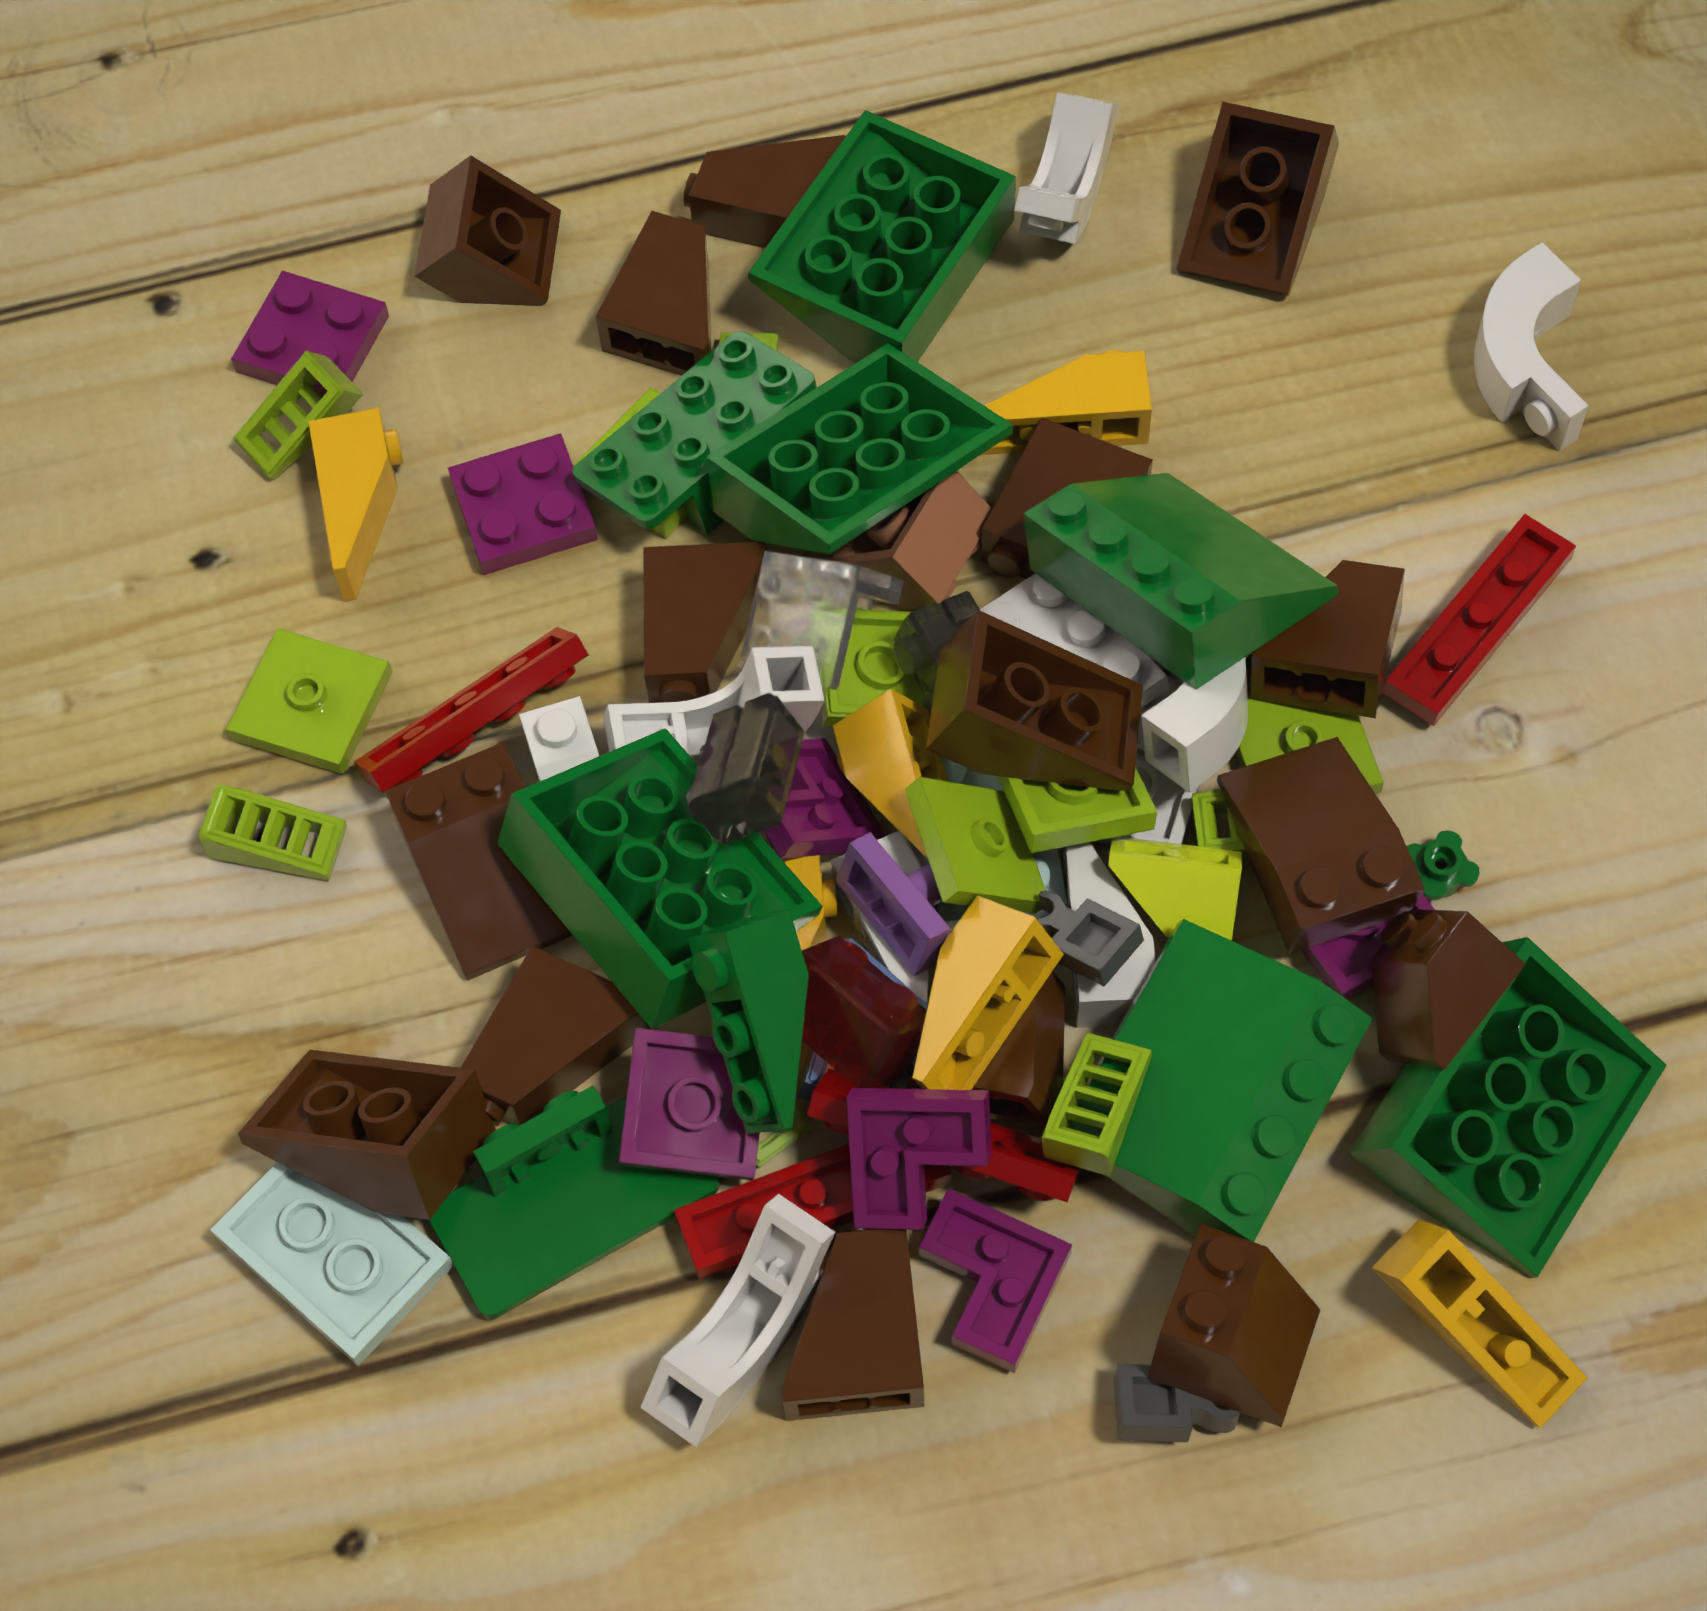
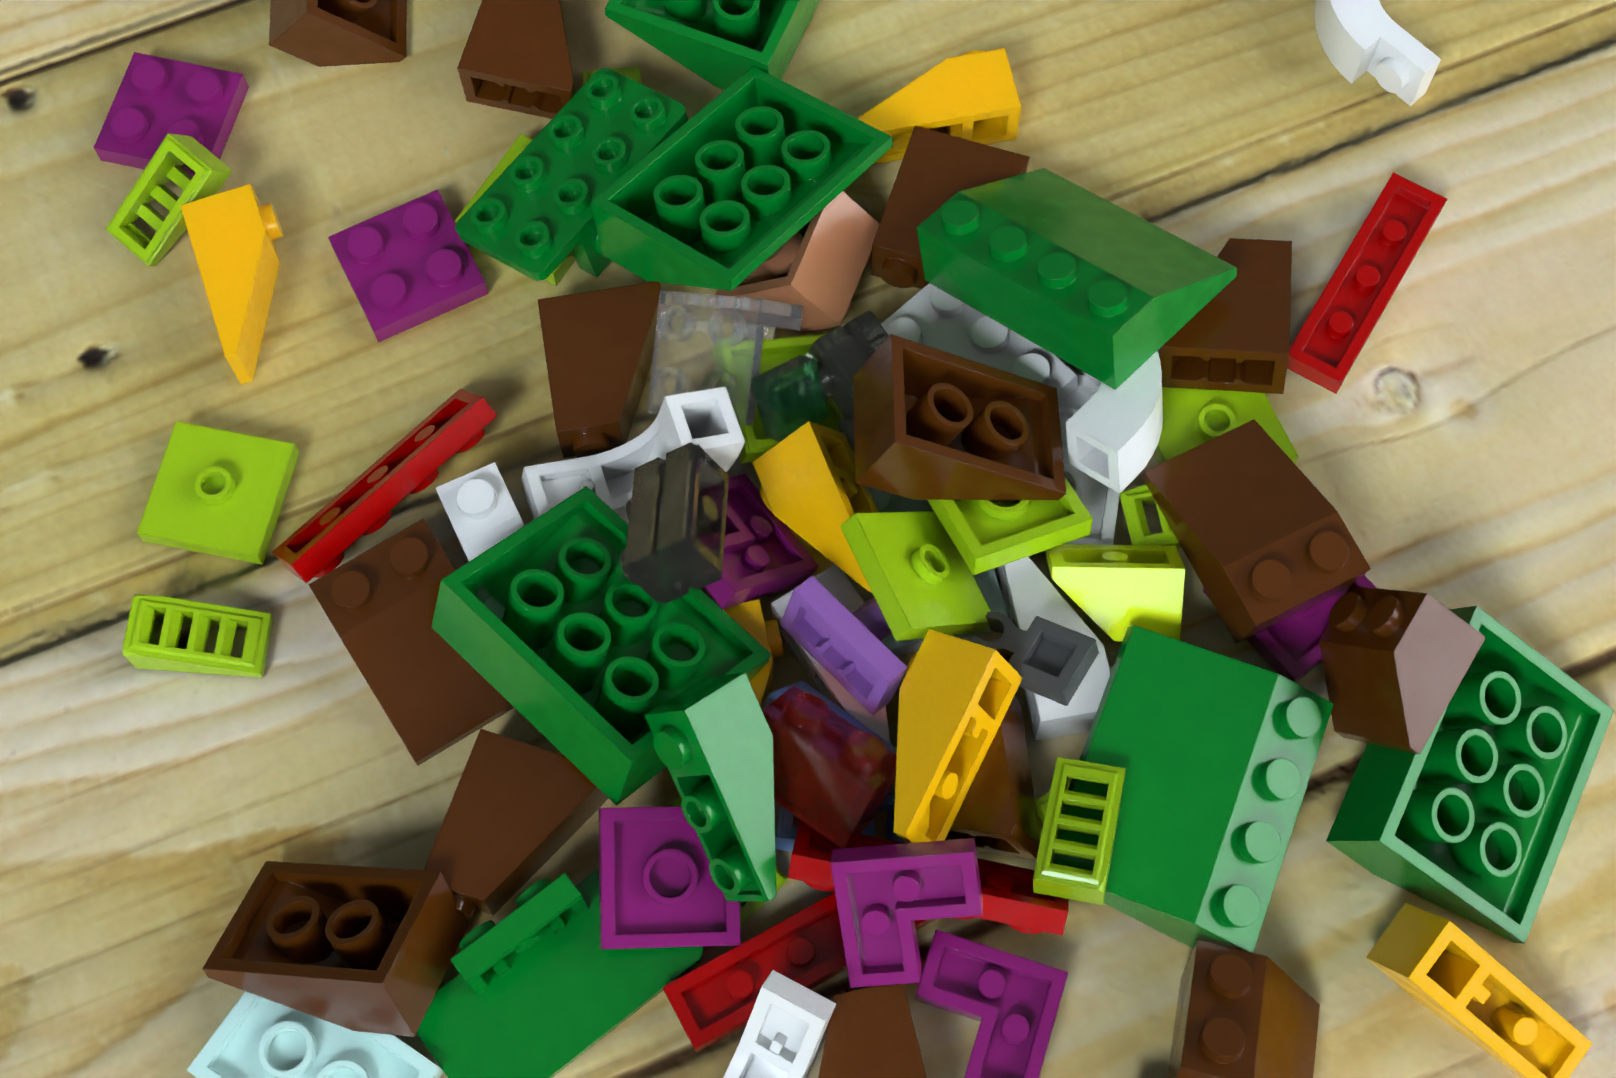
camera: 10 degrees left, 5 degrees up
(876, 665) = (789, 397): none -> clear green plate
(1448, 881) = (1384, 536): green plate -> none

